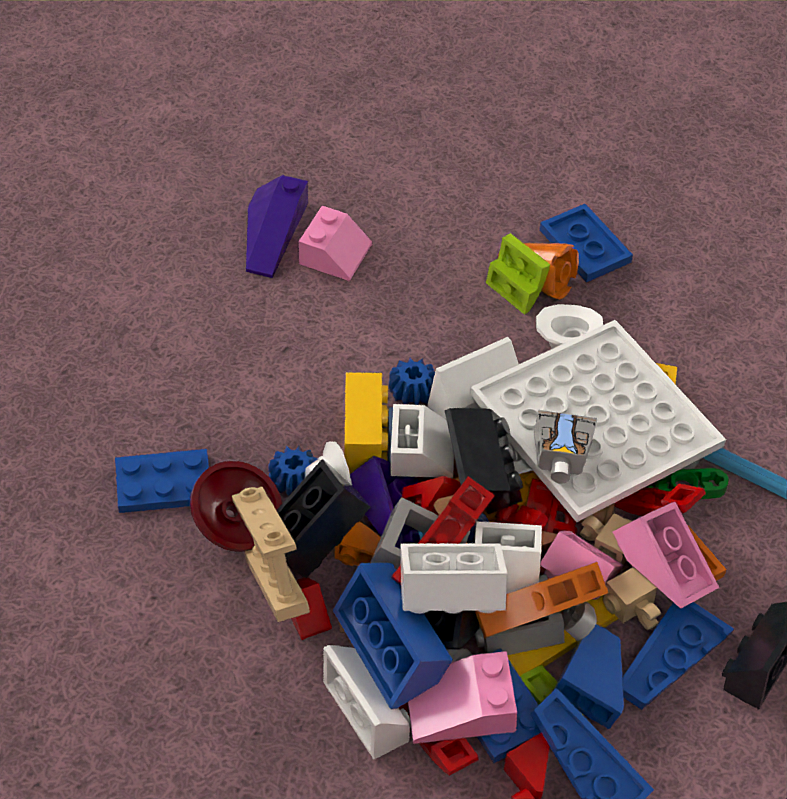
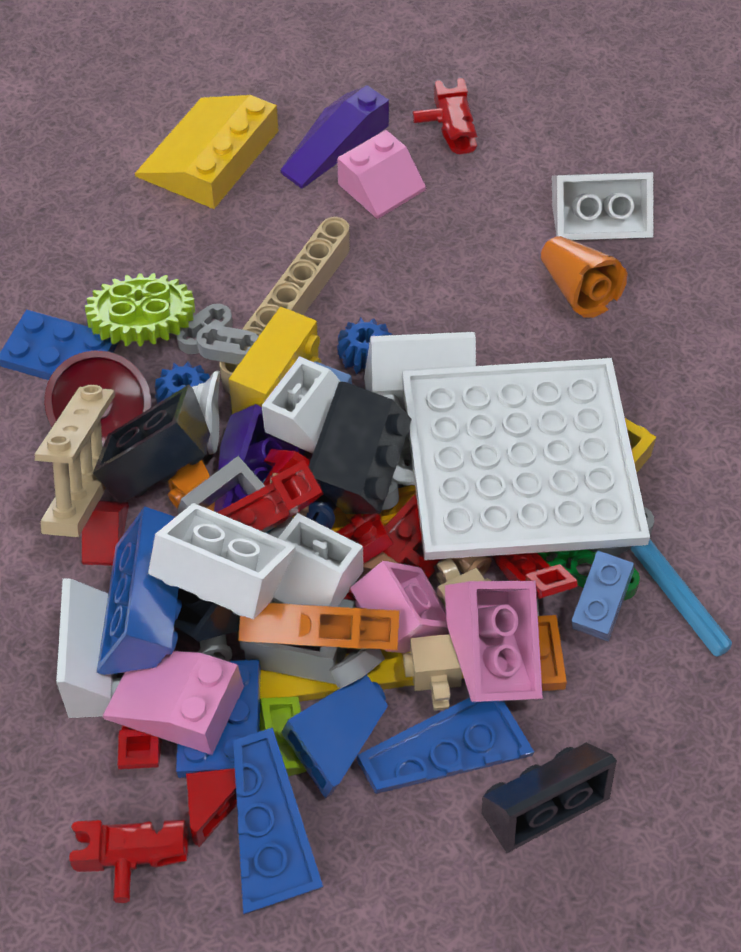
camera: 30 degrees right, 5 degrees up
(175, 269) = (212, 147): none -> yellow slope
(215, 421) = (140, 309): none -> lime gear
(278, 419) = (201, 320): none -> light grey beam
(316, 420) = (229, 343): none -> light grey beam
(329, 370) = (301, 280): none -> tan beam
(355, 173) = (454, 114): none -> red piece
(517, 273) = (547, 272): lime slope -> none
(518, 206) = (603, 205): none -> white slope
(563, 443) = (454, 469): torso -> none
(566, 322) = (563, 341): white hat -> none
(597, 246) = (654, 266): blue plate -> none
(718, 506) = (602, 595): none -> medium blue brick

